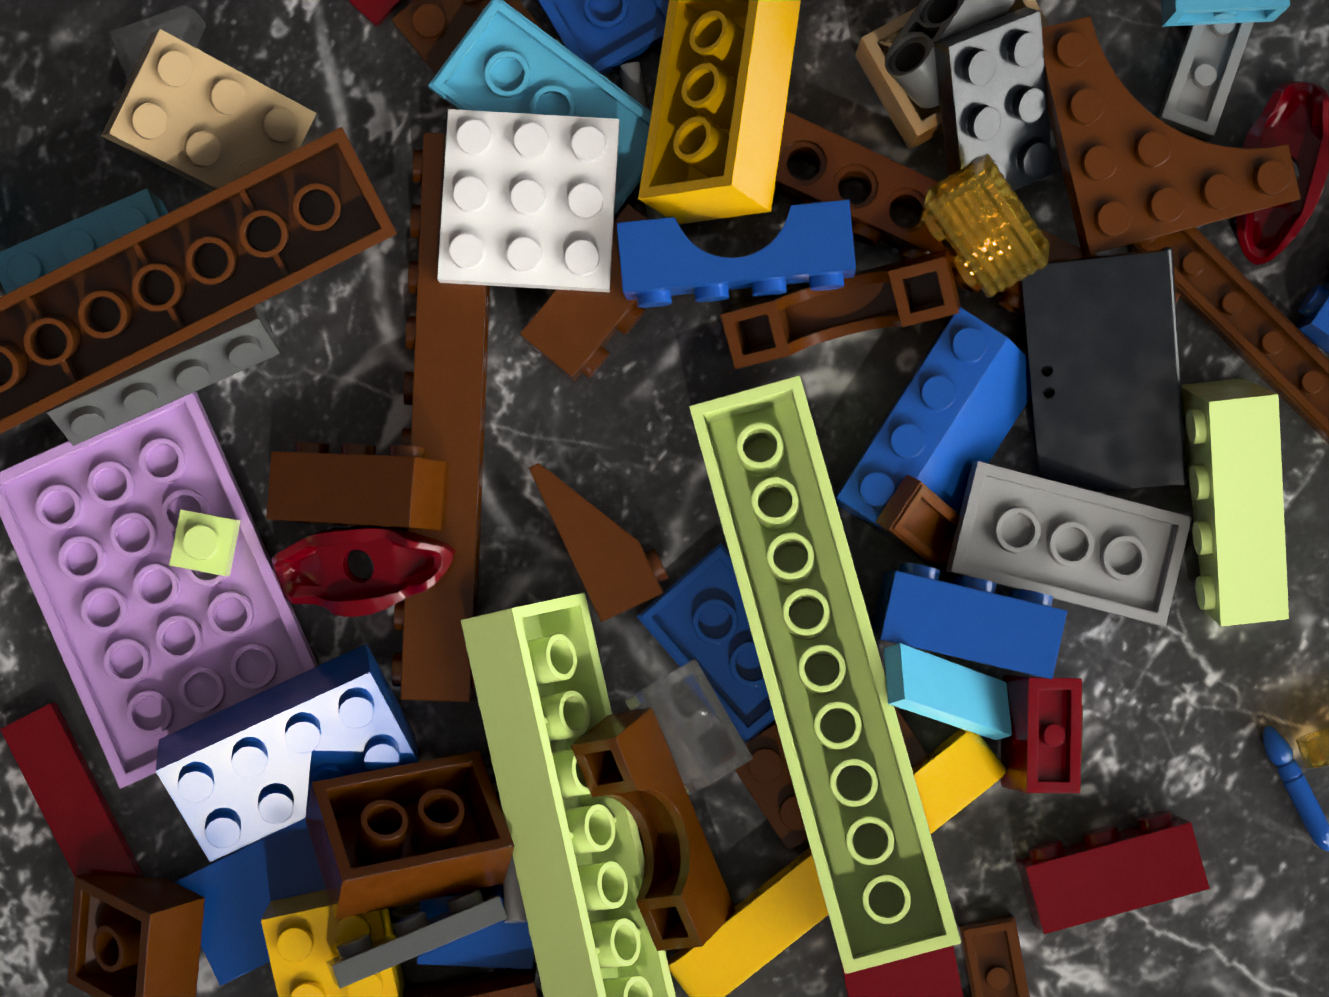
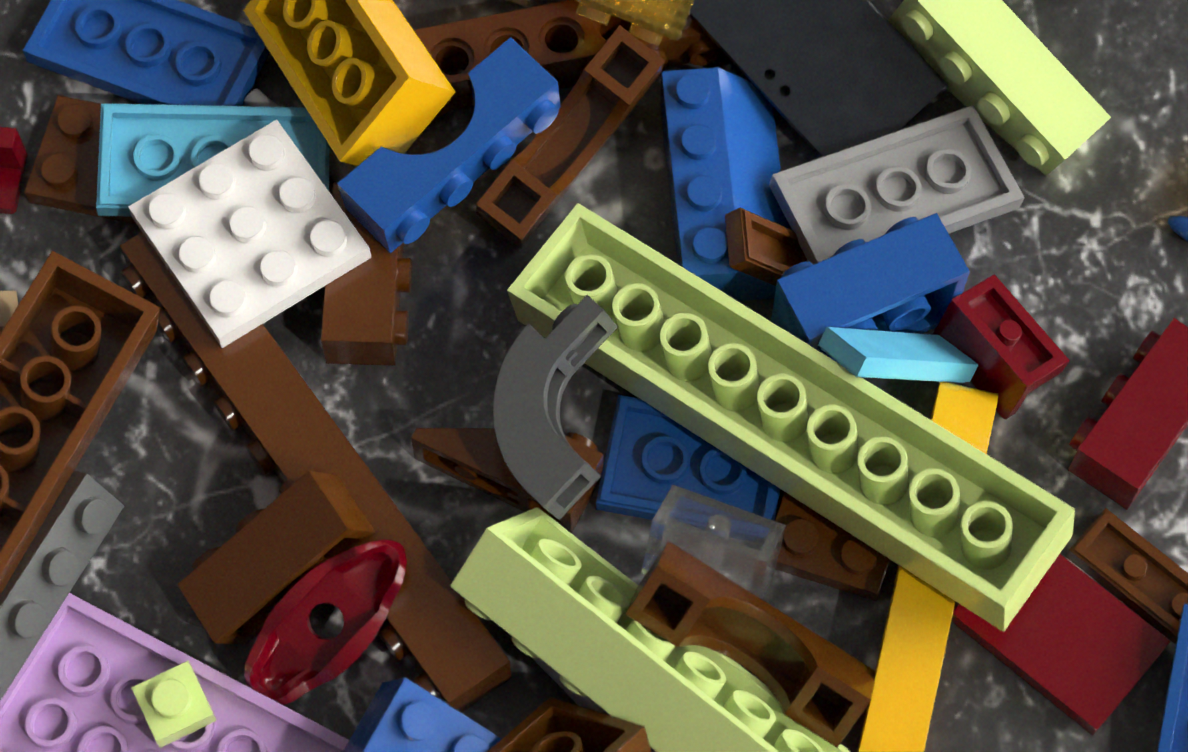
camera: 35 degrees left, 20 degrees down
(617, 532) = (530, 400): none -> dark grey arch

